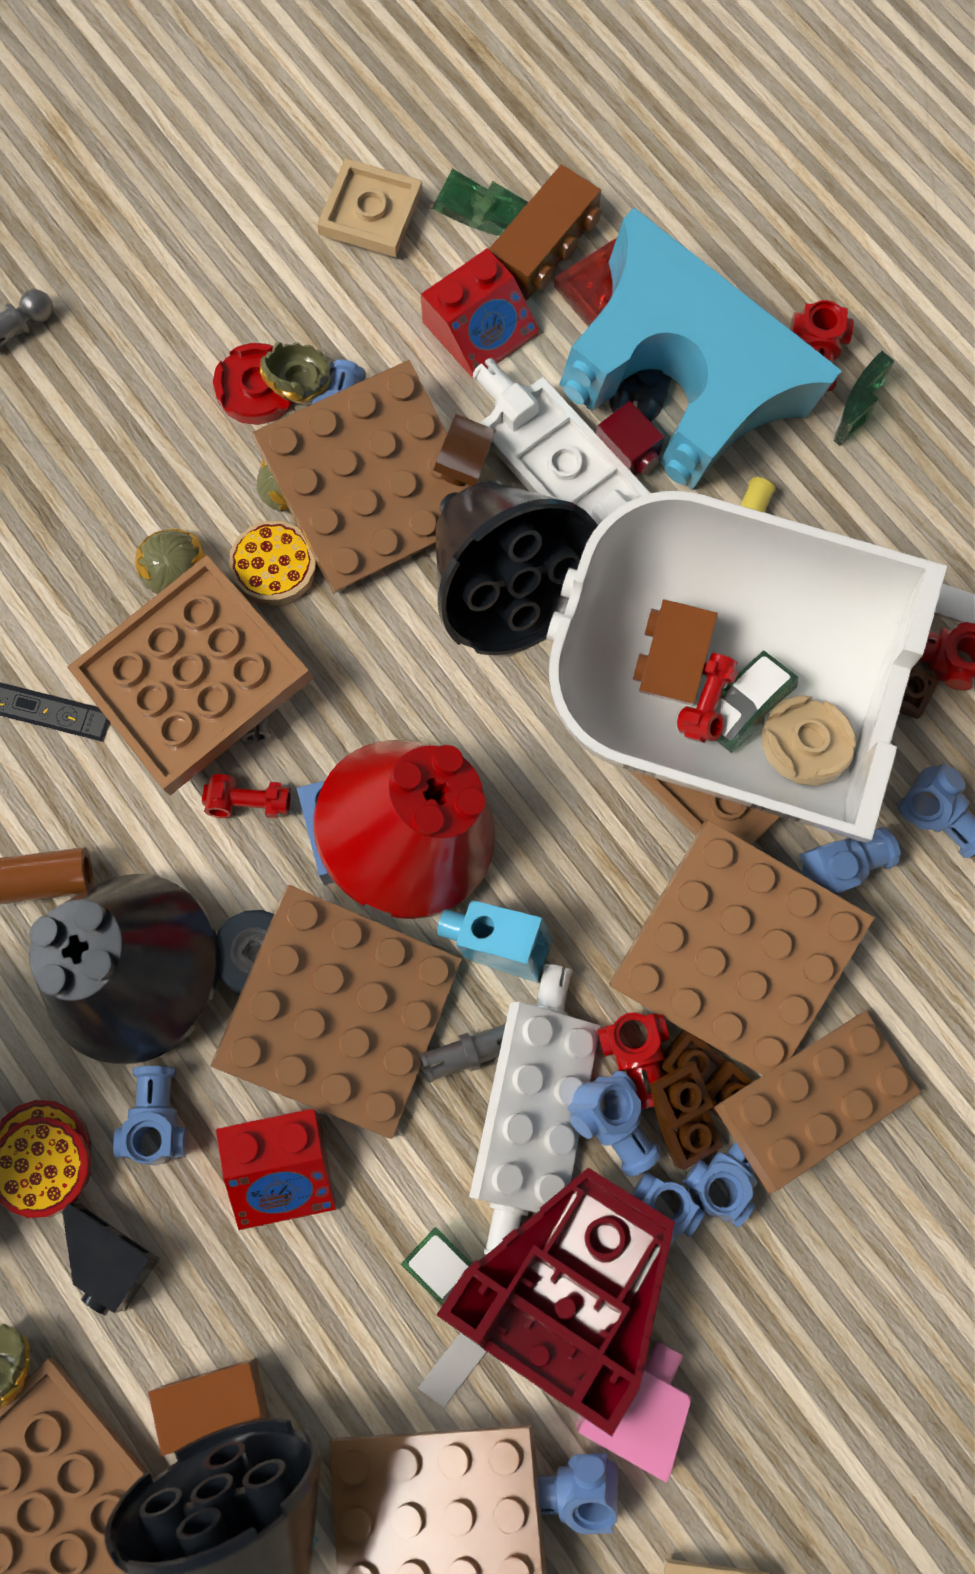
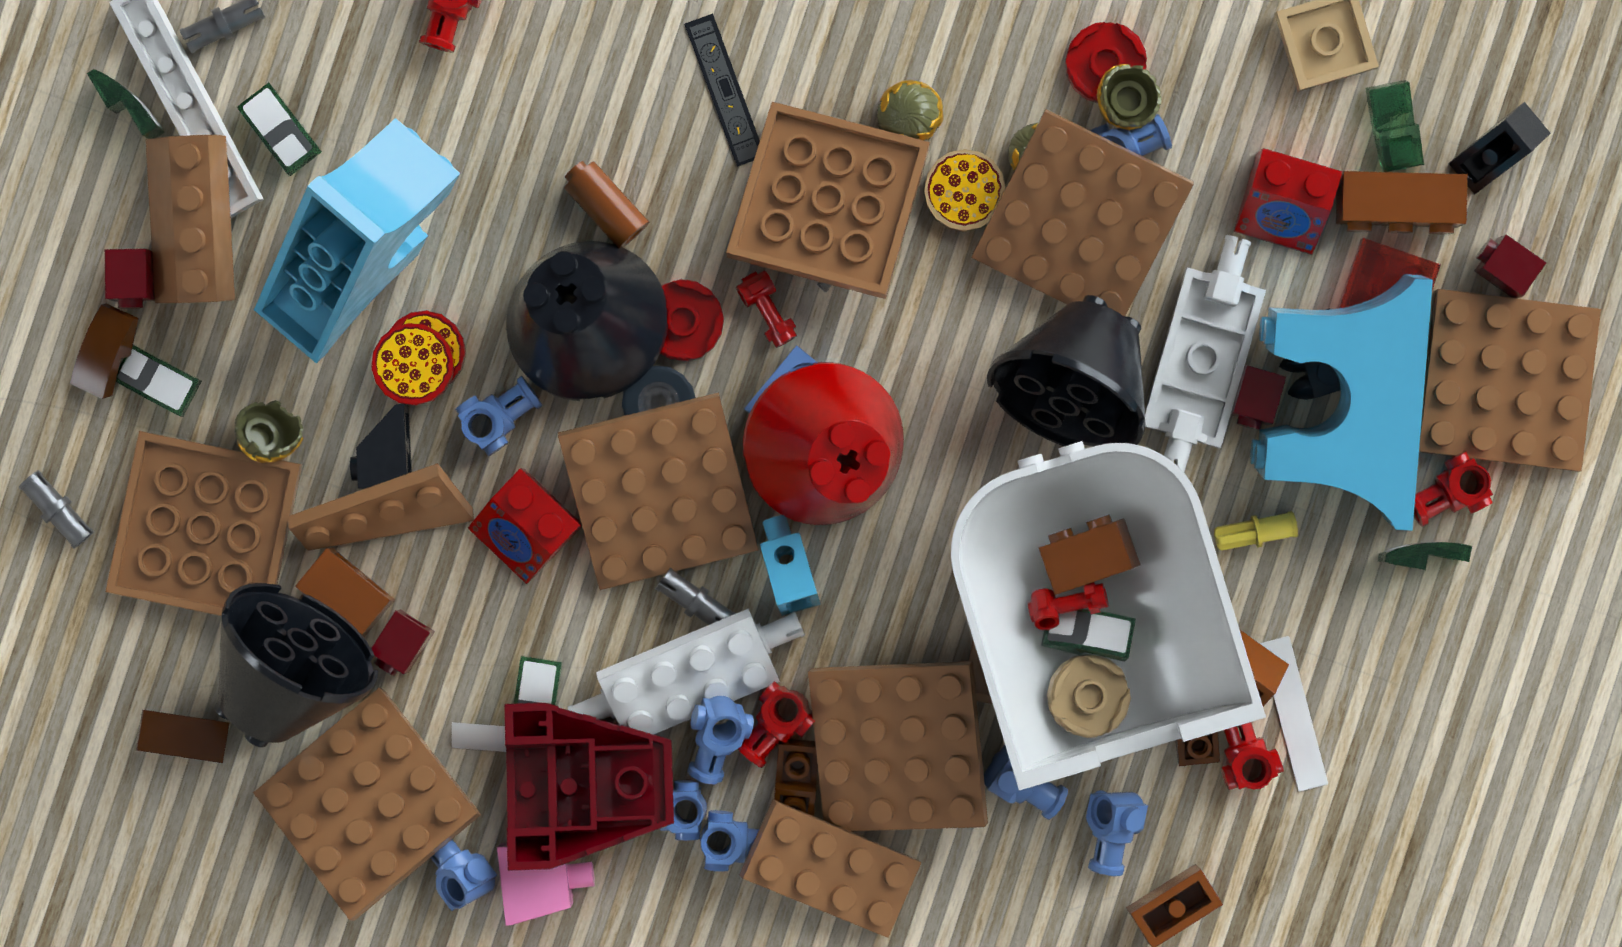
camera: 55 degrees right, 15 degrees up
(160, 1291) = (391, 508): none -> medium nougat wing
(208, 872) = (692, 320): none -> red tile
(301, 1384) = (401, 643): none -> dark red brick
(464, 451) = (1148, 280): reddish brown slope -> none
(556, 133) = (1500, 147): none -> black slope
(660, 188) = (1508, 265): none -> dark red brick
(684, 1117) = (754, 783): reddish brown slope -> none
(767, 237) = (1509, 379): none -> medium nougat plate

